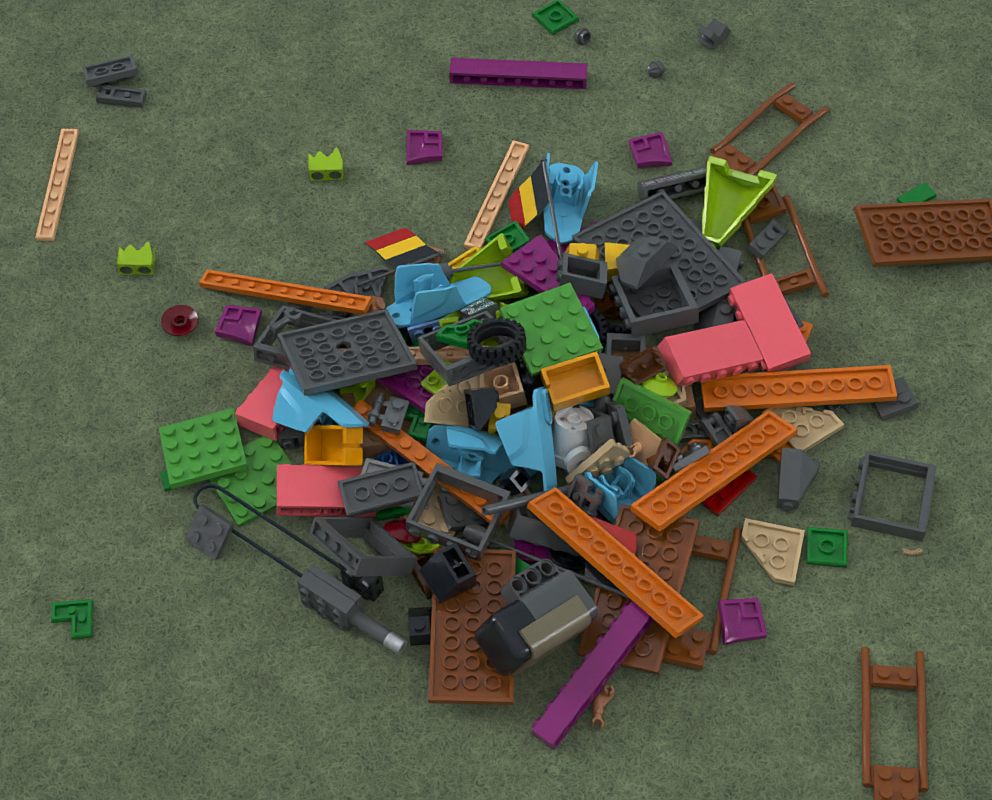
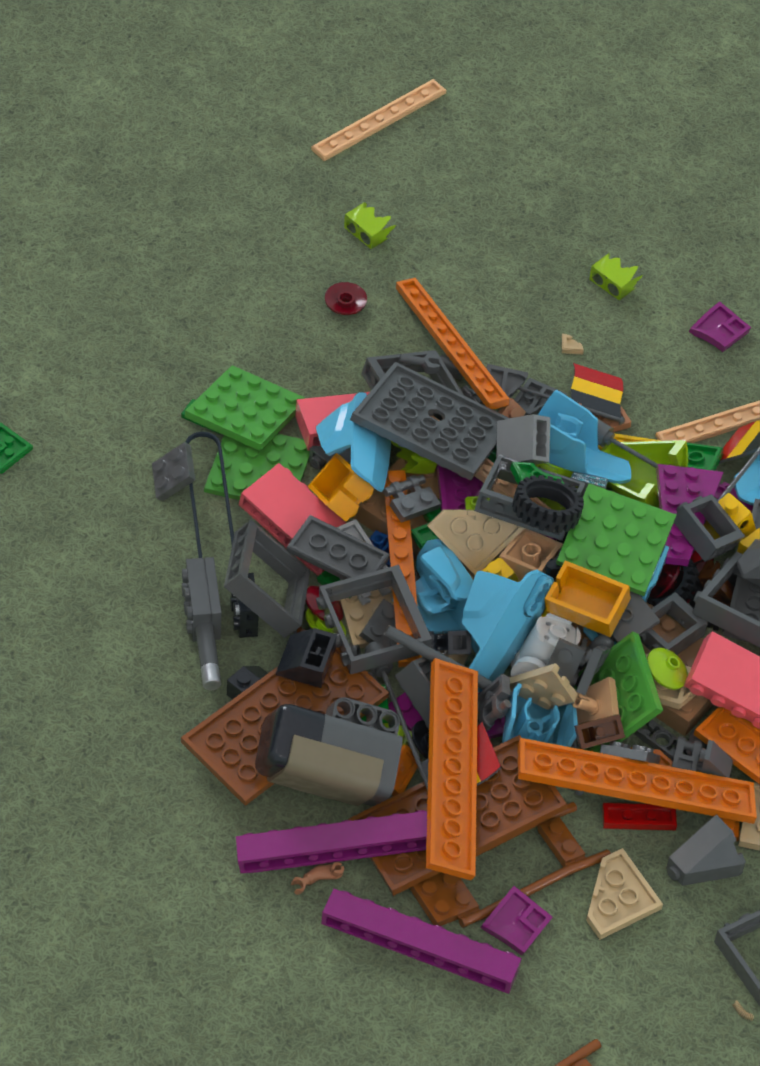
camera: 40 degrees right, 5 degrees down
(110, 71) = (525, 63): dark grey plate -> none
(121, 95) = (512, 90): dark grey plate -> none
(239, 324) = (390, 338): magenta plate -> none
(349, 233) = (570, 345): none -> tan tile
(420, 316) = (524, 439): none -> light grey brick
(480, 405) = (484, 548): black slope -> none
(642, 366) = (666, 639): reddish brown hinge -> none
(705, 686) = (421, 940): none -> magenta brick
(826, 547) = (669, 937): green tile -> none

